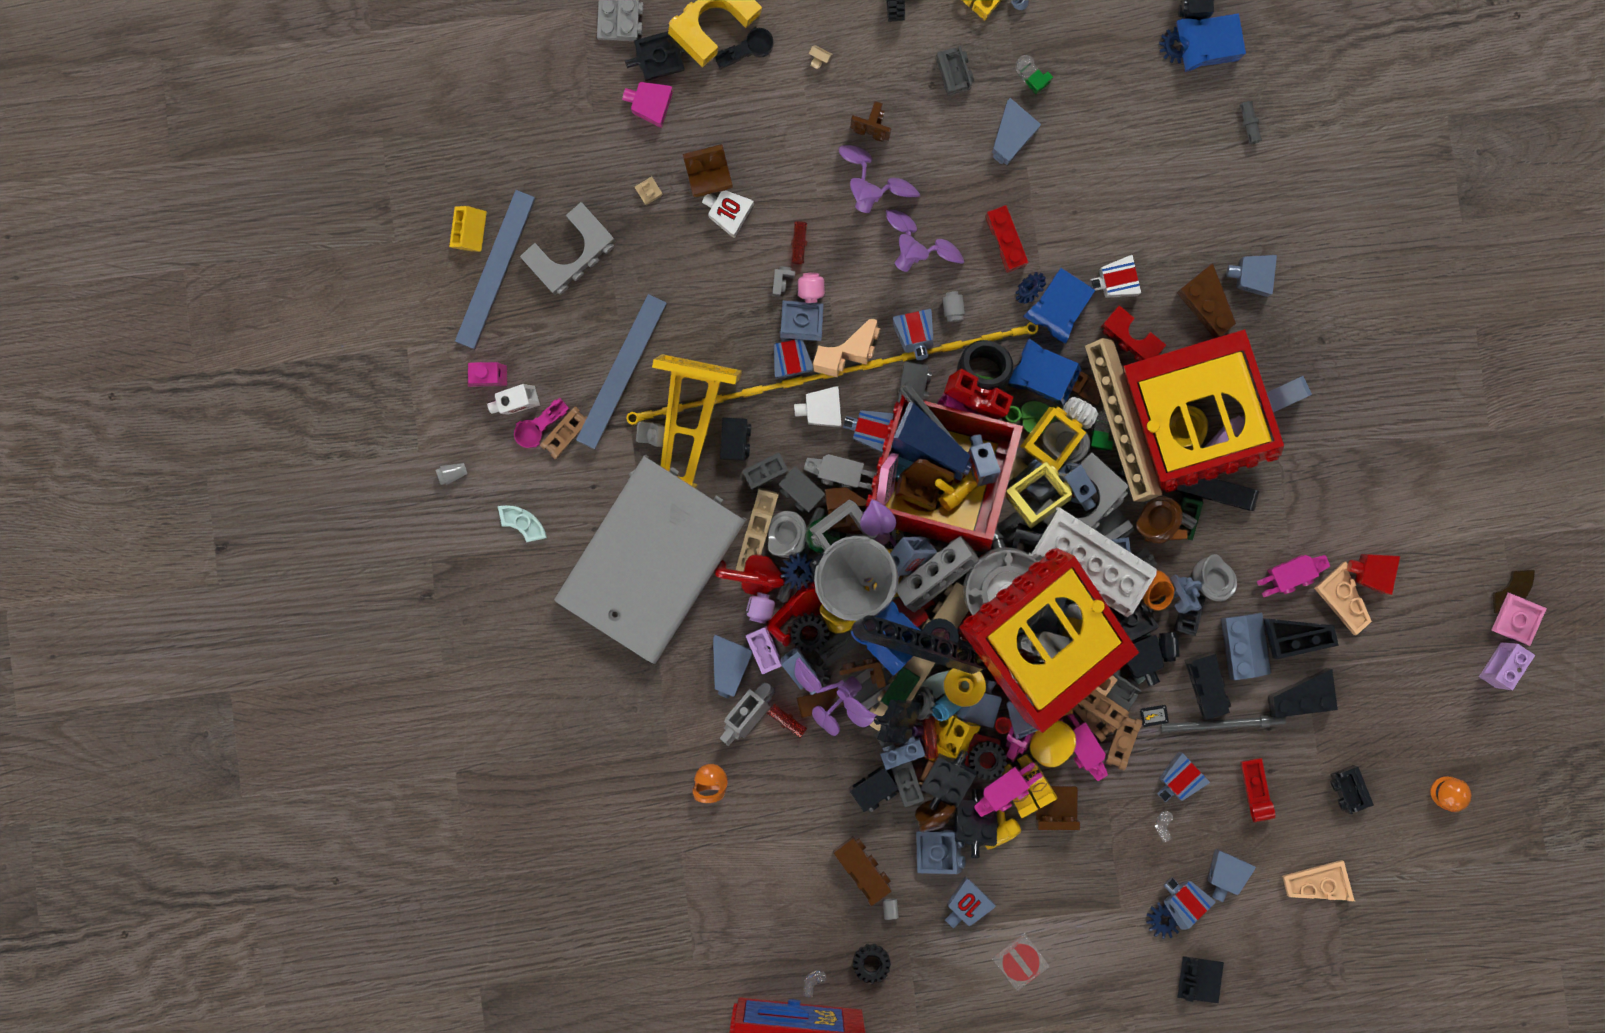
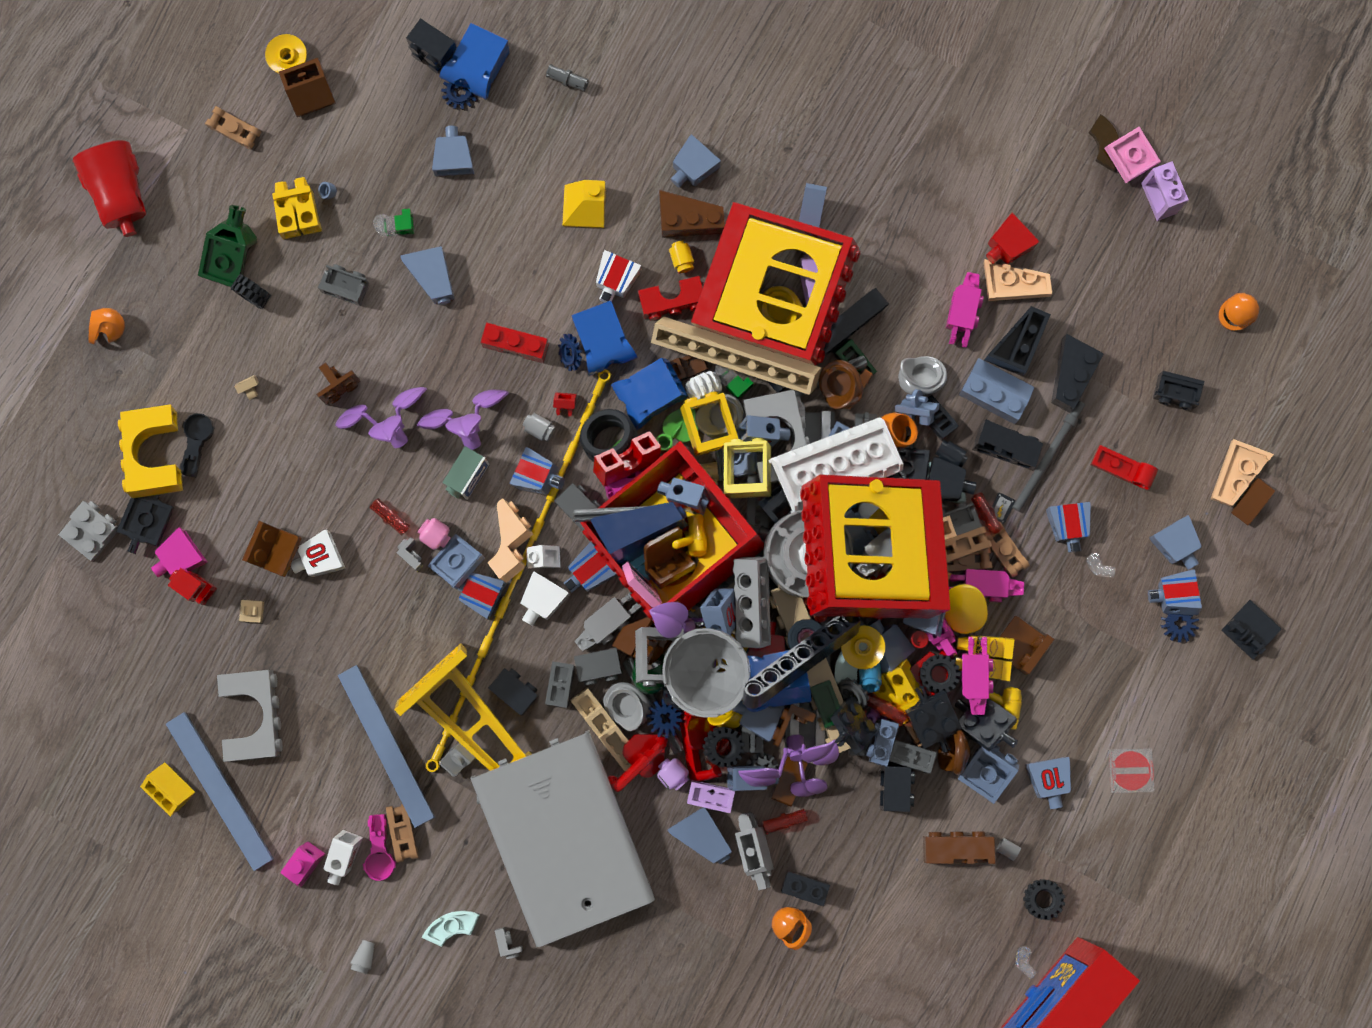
camera: 50 degrees left, 5 degrees down
(540, 570) = (504, 940): none -> light grey bracket
(634, 131) = (191, 586): none -> red arch
(747, 773) = (805, 888): none -> black hinge
(848, 648) = (762, 722): none -> sand blue torso
(854, 385) = (543, 556): none -> white bracket
(875, 277) = (465, 473): none -> sand green piece
(988, 311) = (565, 401): none -> red tile
(1121, 77) = (452, 154): none -> sand blue torso
(1141, 707) = (986, 513): none -> clear red pin
(1158, 212) = (584, 204): none -> yellow slope
(1171, 319) = (681, 257): none -> yellow brick
(1304, 910) = (1253, 501): none -> reddish brown slope

